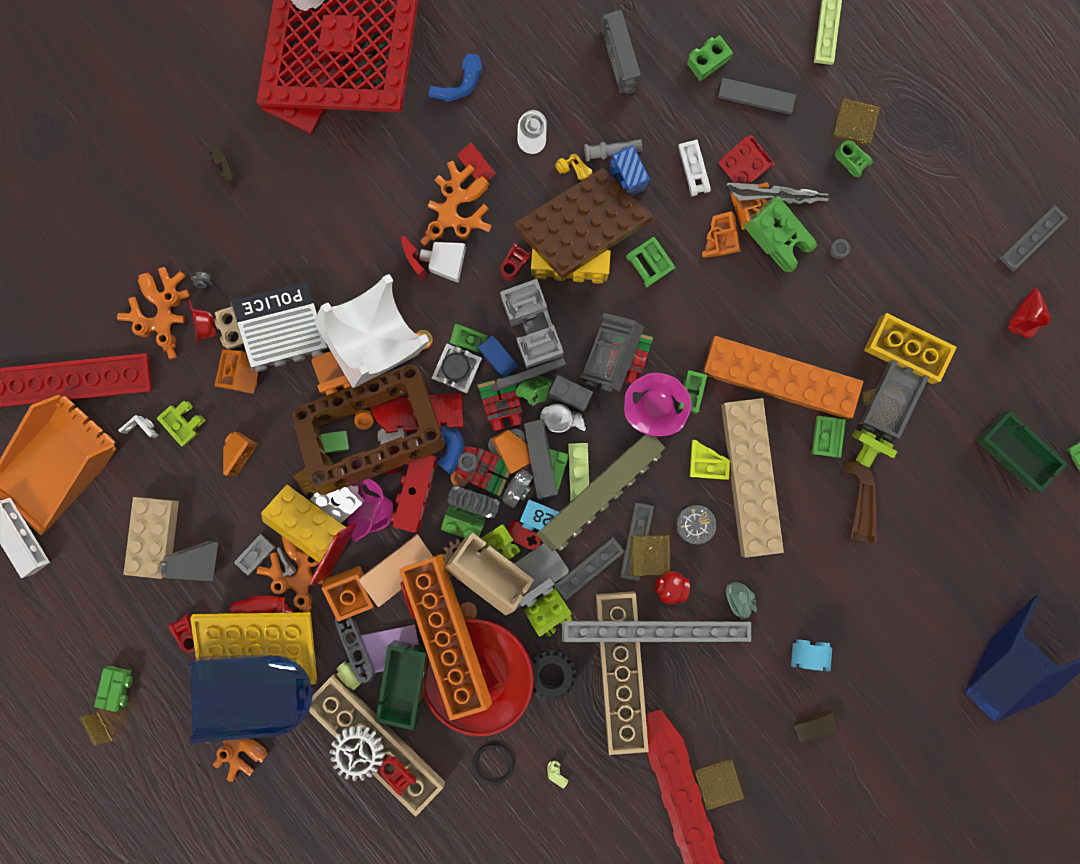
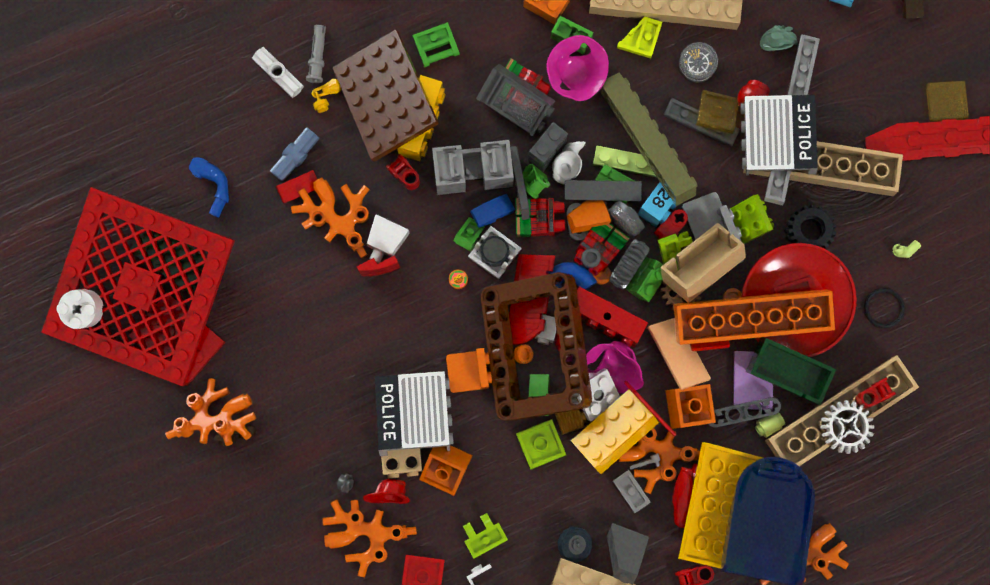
camera: 85 degrees left, 5 degrees down
(191, 511) = (574, 544): none -> black wheel
(226, 147) = (220, 423): none -> orange plant
(236, 453) = (526, 484): orange slope -> none
(281, 457) = (541, 444): none -> lime tile
(368, 334) = (443, 325): white piece -> none
(507, 152) = (294, 154): none -> sand blue piece
(532, 131) = (280, 125): white cap -> none
(589, 568) = (716, 172): dark grey tile -> none
(590, 106) = (270, 64): none -> white piece
(620, 52) = (226, 22): dark grey door -> none
(629, 171) = (344, 41): blue container -> none
(636, 622) = (779, 133): none -> panel

